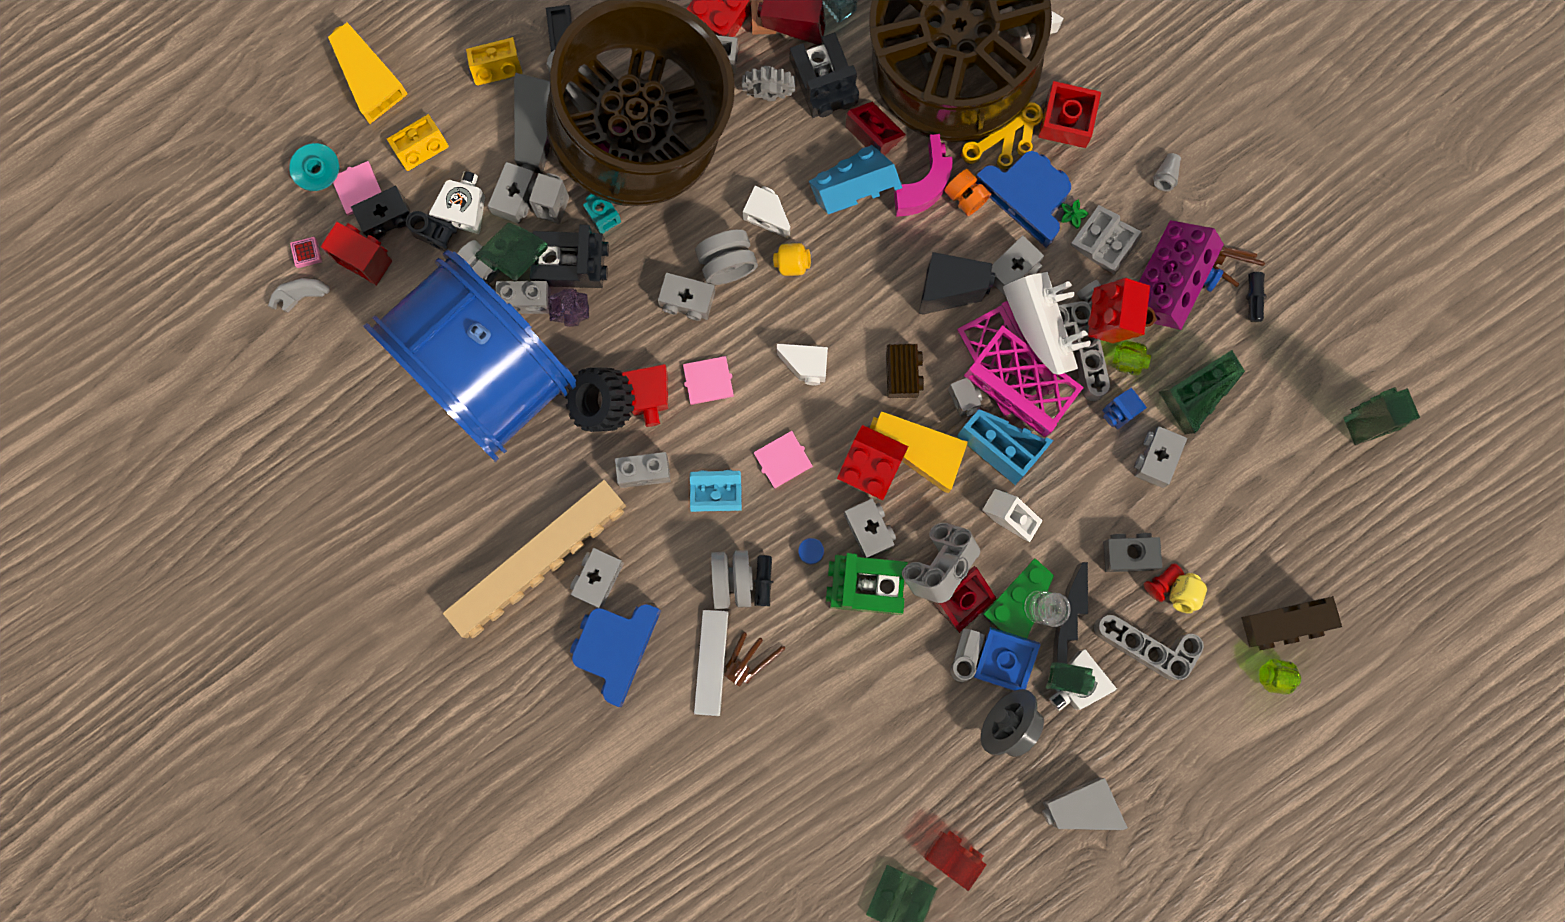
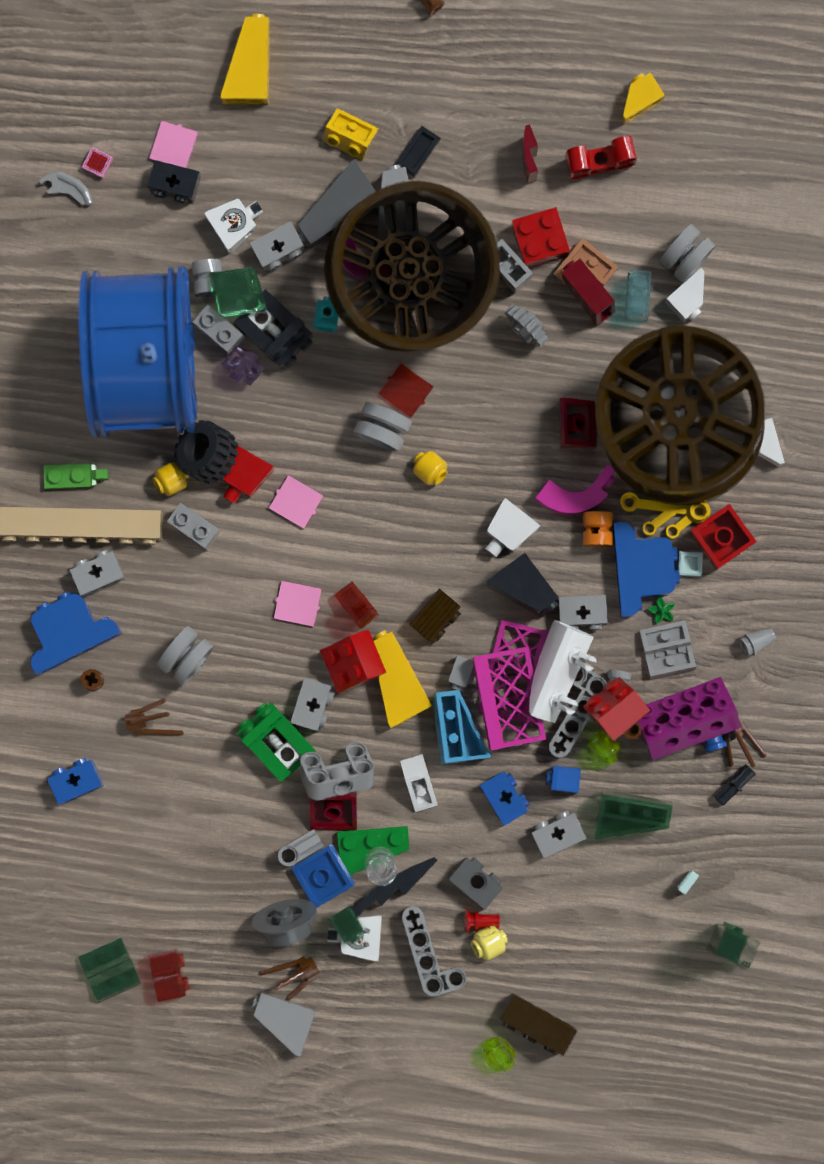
camera: 50 degrees right, 5 degrees up
(309, 158) = (153, 94): teal dish -> none
(356, 252) = (129, 197): red brick -> none
(417, 142) = (243, 148): yellow bracket -> none
(435, 231) = (197, 227): black piece -> none
(506, 517) = (73, 476): none -> bright green hinge
(549, 198) = (298, 274): light grey brick -> none
(589, 449) = (169, 479): none -> yellow head
(663, 666) = (91, 672): none -> reddish brown bush
(677, 287) = (330, 416): light grey brick -> none
(711, 663) = (124, 700): white slope -> none
(715, 491) = (230, 585): medium azure bracket -> none
(716, 216) = (406, 390): none -> clear red piece
(730, 783) = (89, 781): none -> blue brick
(763, 581) = (208, 676): black axle -> none
(766, 211) = (443, 416): white slope -> none
(805, 362) = (373, 550): white slope -> none
(811, 551) = (259, 684): blue tile -> none
(829, 90) = (566, 369): black brick -> none
(837, 417) = (356, 605): none -> clear red brick
(854, 179) = (523, 449): dark azure wedge -> none
(898, 251) = (509, 528): none -> white torso
(1062, 158) = (690, 563): none -> light aqua tile
(1063, 750) = (306, 970): none -> reddish brown plant
(1077, 468) = (493, 789): none -> blue brick
(1294, 403) = (687, 882): none -> light aqua tile

